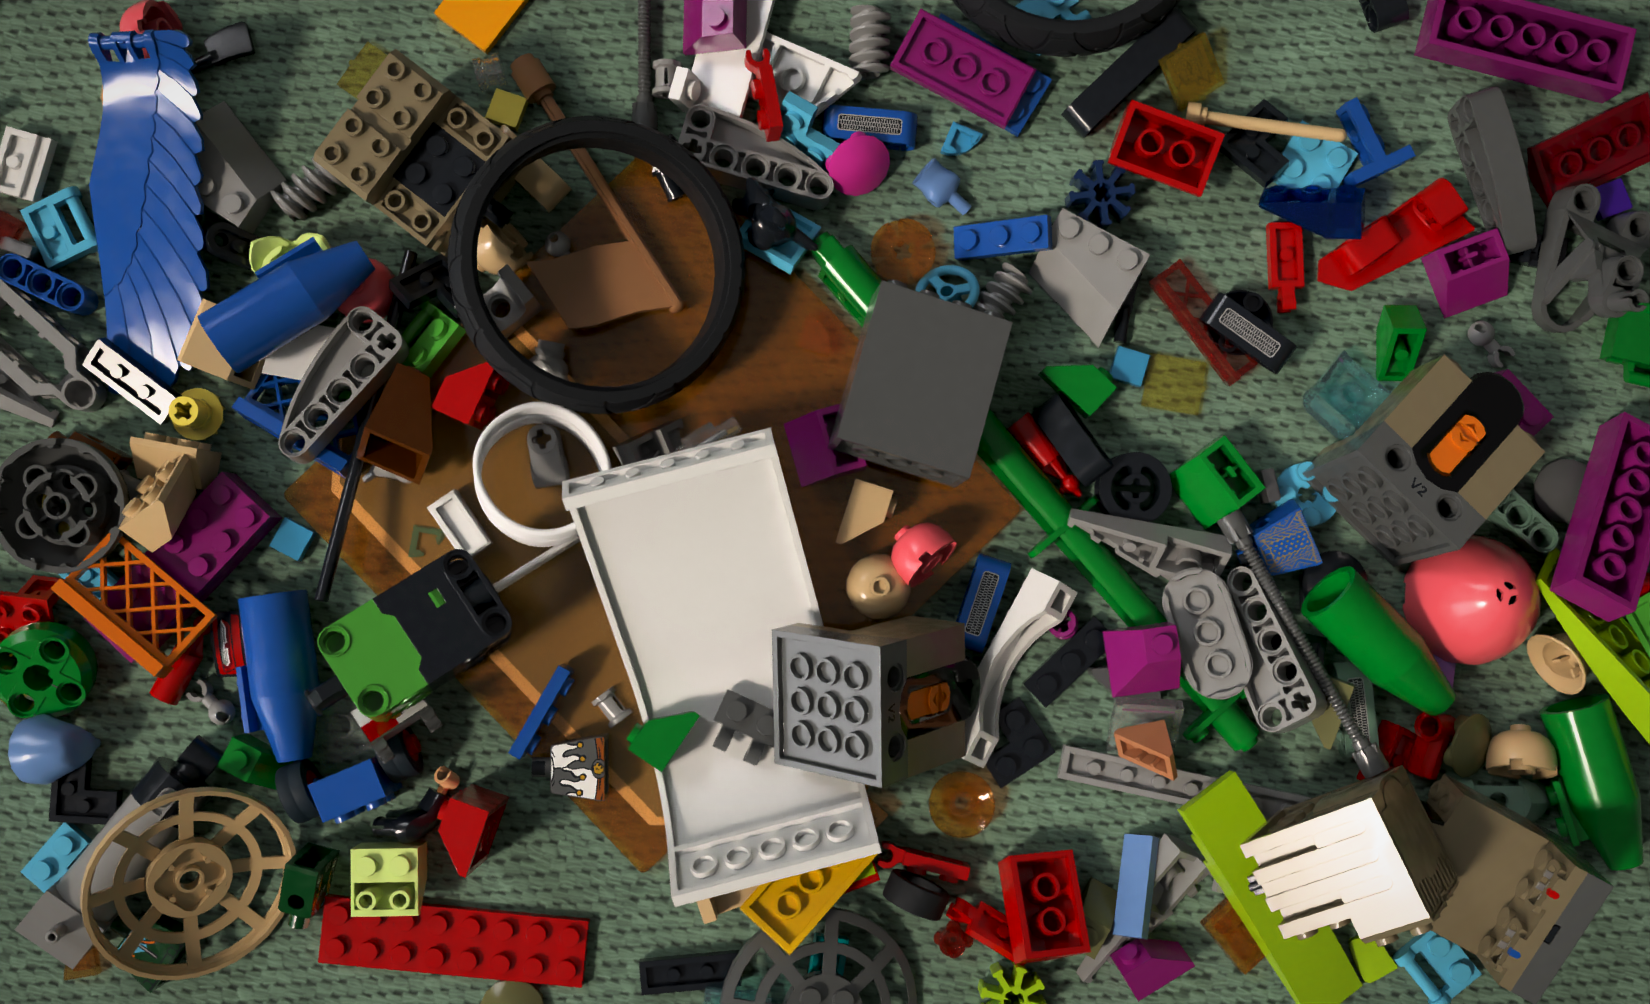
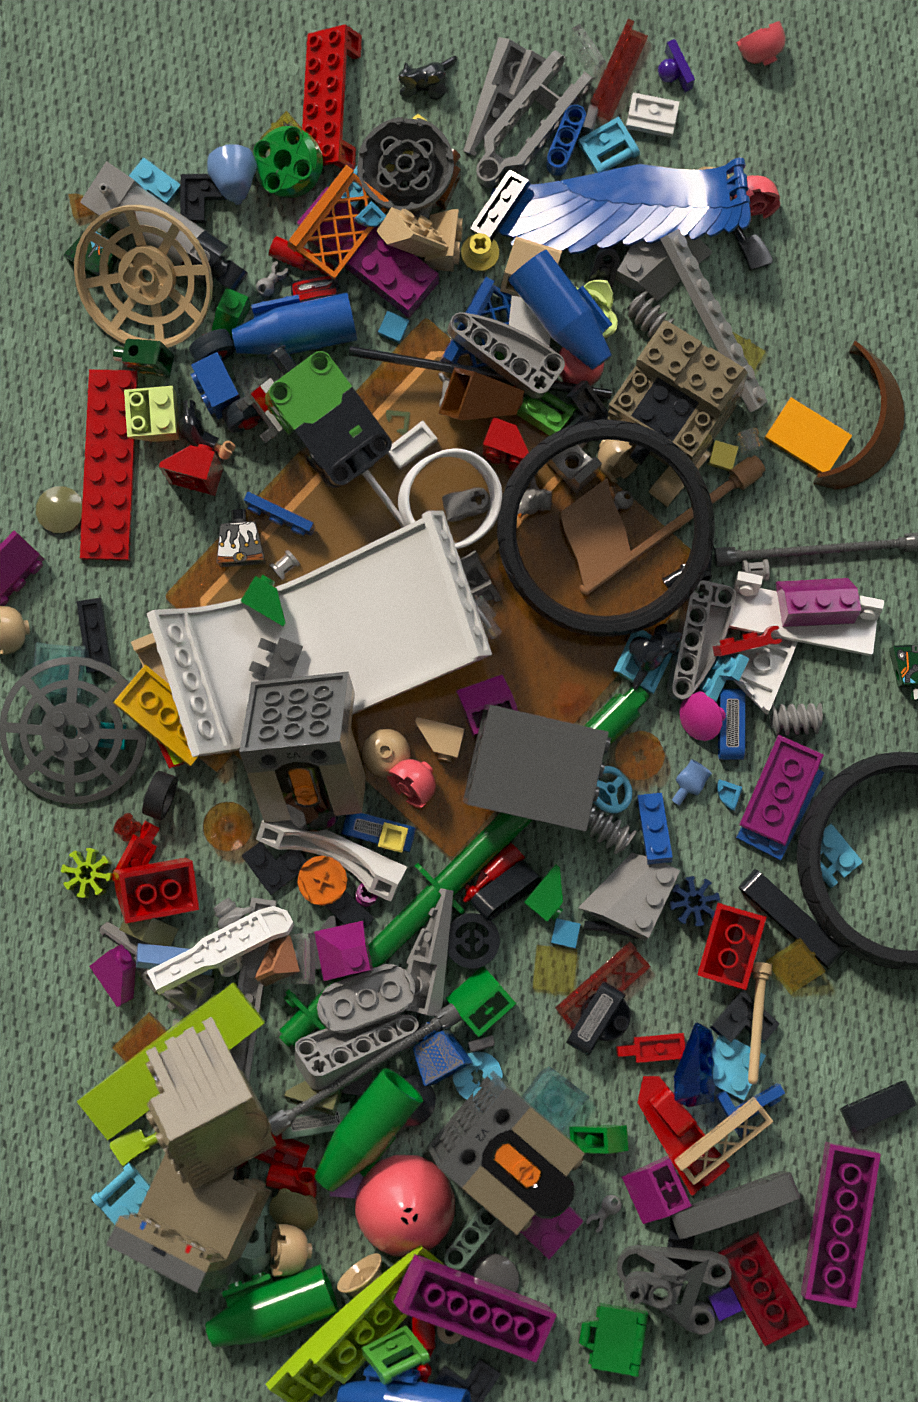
camera: 90 degrees right, 5 degrees down
(129, 559) = (370, 216): none -> dark azure tile
(298, 106) = (711, 314): none -> light grey plate
(920, 862) = (183, 799): red plate -> none
(994, 584) = (393, 837): none -> light yellow tile
(1043, 682) = (322, 880): none -> orange tile
(1082, 808) = (229, 913): none -> light grey animal
(1129, 820) = (223, 948): none -> white piece
(1409, 183) = (719, 1132): none -> tan fence

